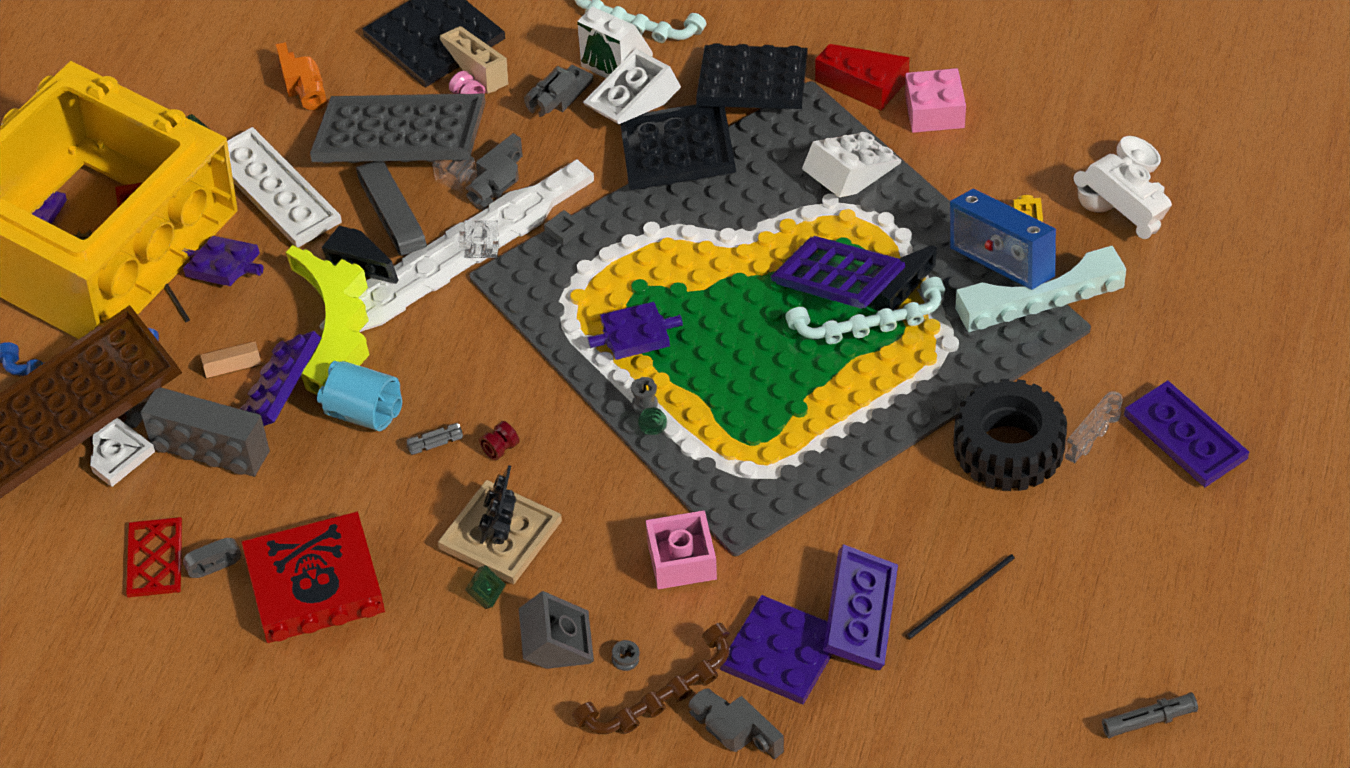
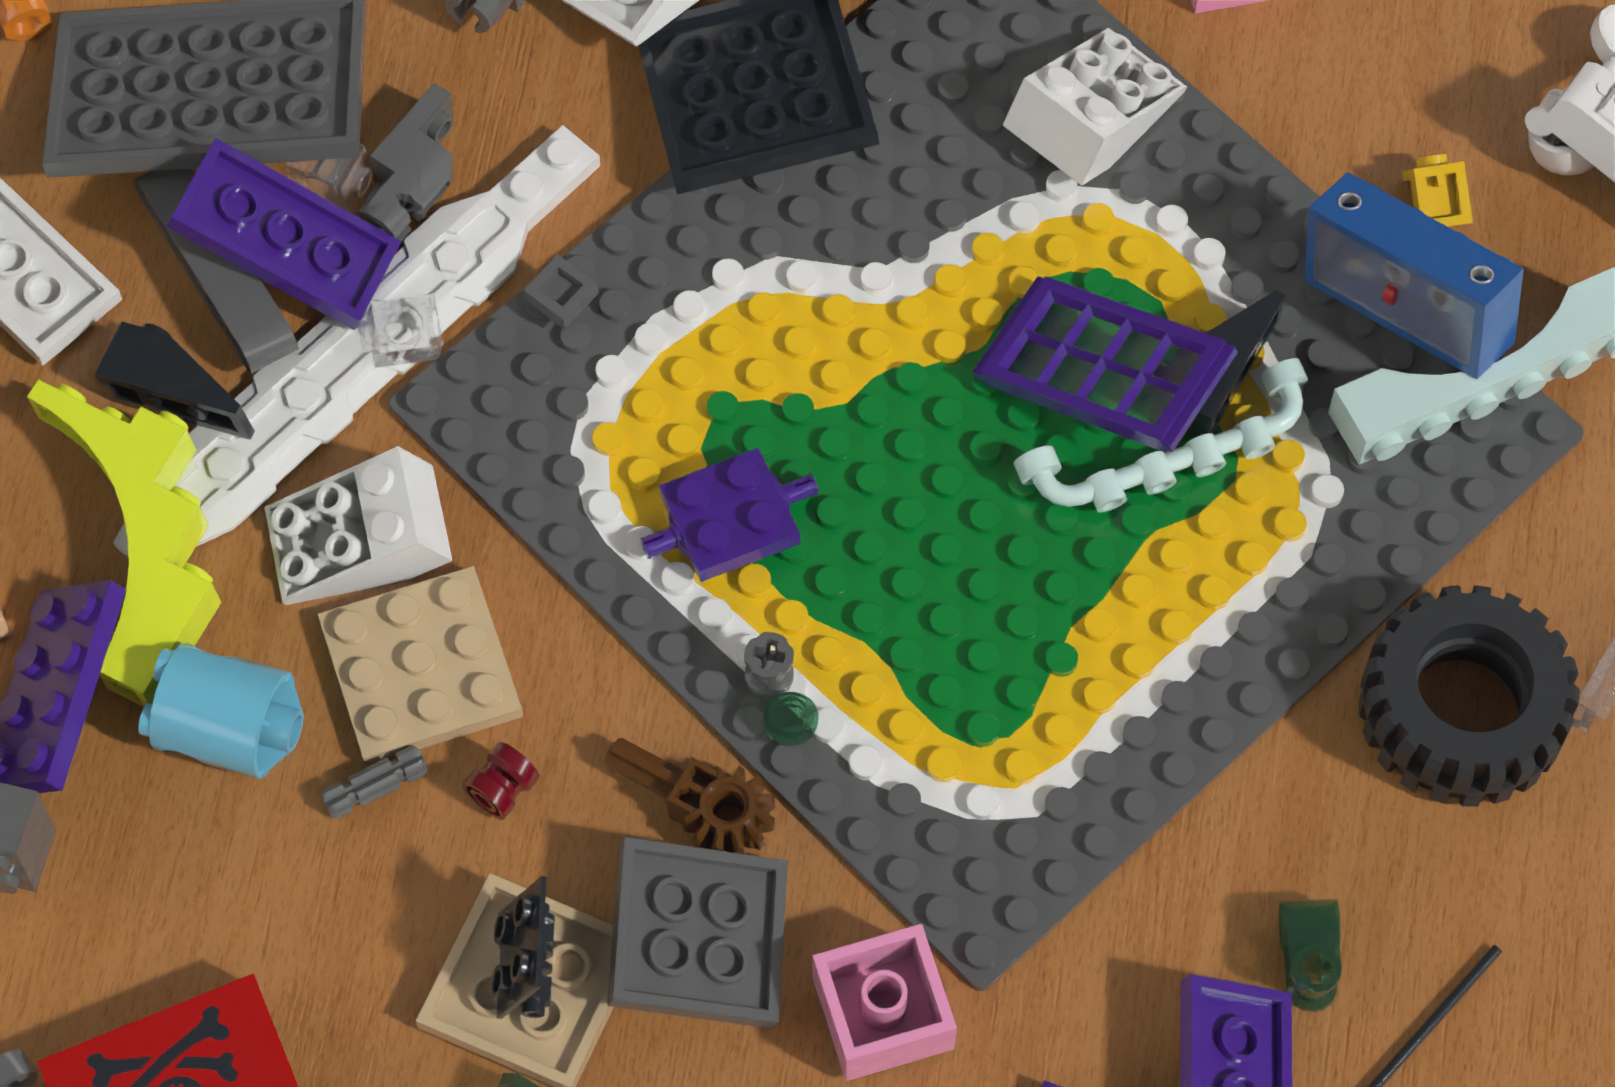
camera: 10 degrees left, 15 degrees up
(426, 190) = (284, 234): none -> dark purple plate
(445, 326) = (359, 529): none -> white slope
(467, 389) = (420, 665): none -> tan plate
(589, 512) = (698, 933): none -> dark grey plate
(604, 458) = (698, 794): none -> reddish brown gear
(911, 546) = (1311, 945): none -> clear green piece

